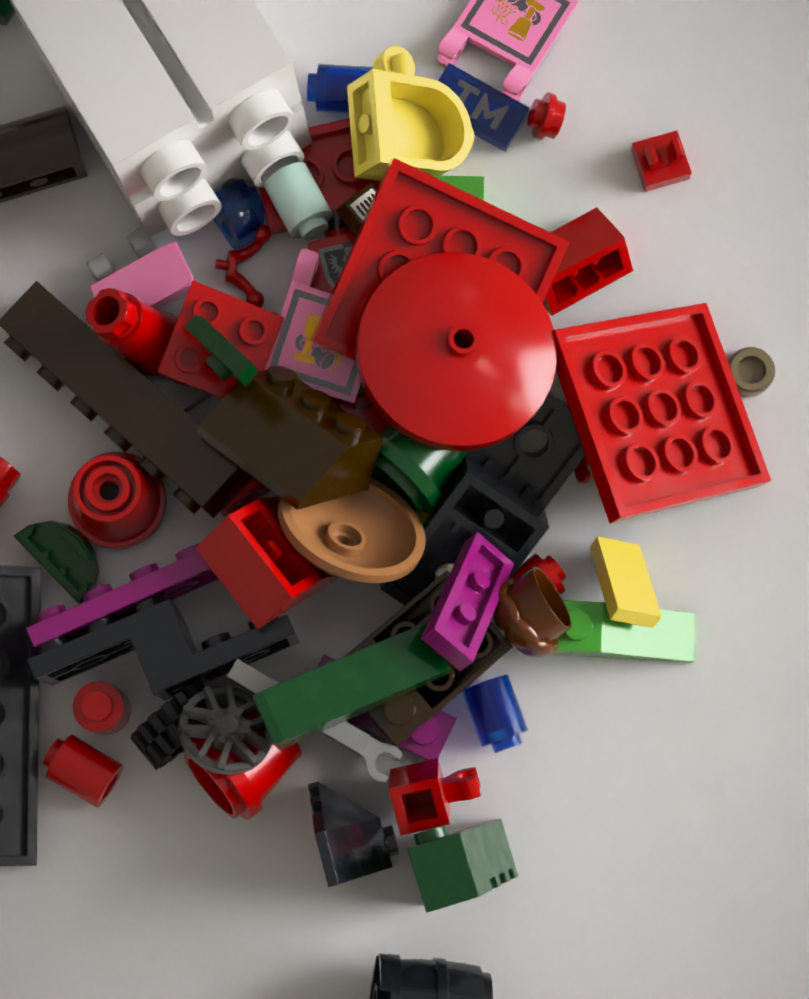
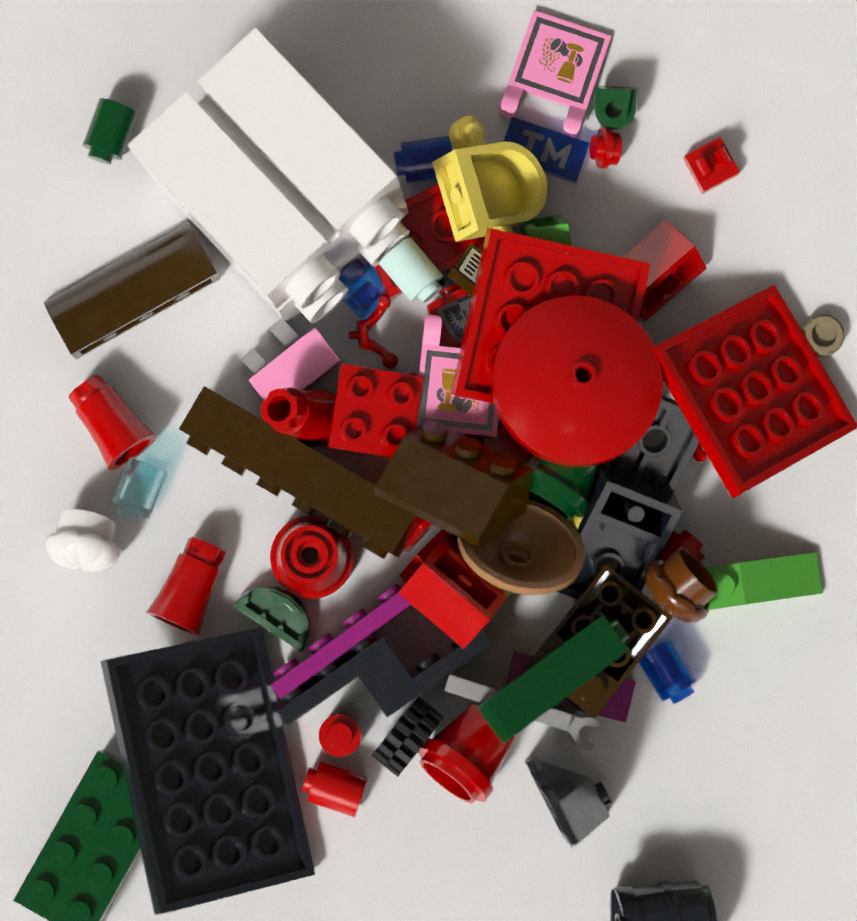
camera: 10 degrees left, 5 degrees up
(223, 356) = (385, 427): dark green plate -> none
(224, 730) = (452, 734): dark grey wheel -> none
(424, 797) = (623, 752): red brick -> none
(460, 863) = (665, 803): dark green wedge -> none
(467, 602) = (631, 590): magenta plate -> none
(567, 71) = (616, 105): none -> dark green piece
(625, 582) = (753, 540): light yellow tile -> none

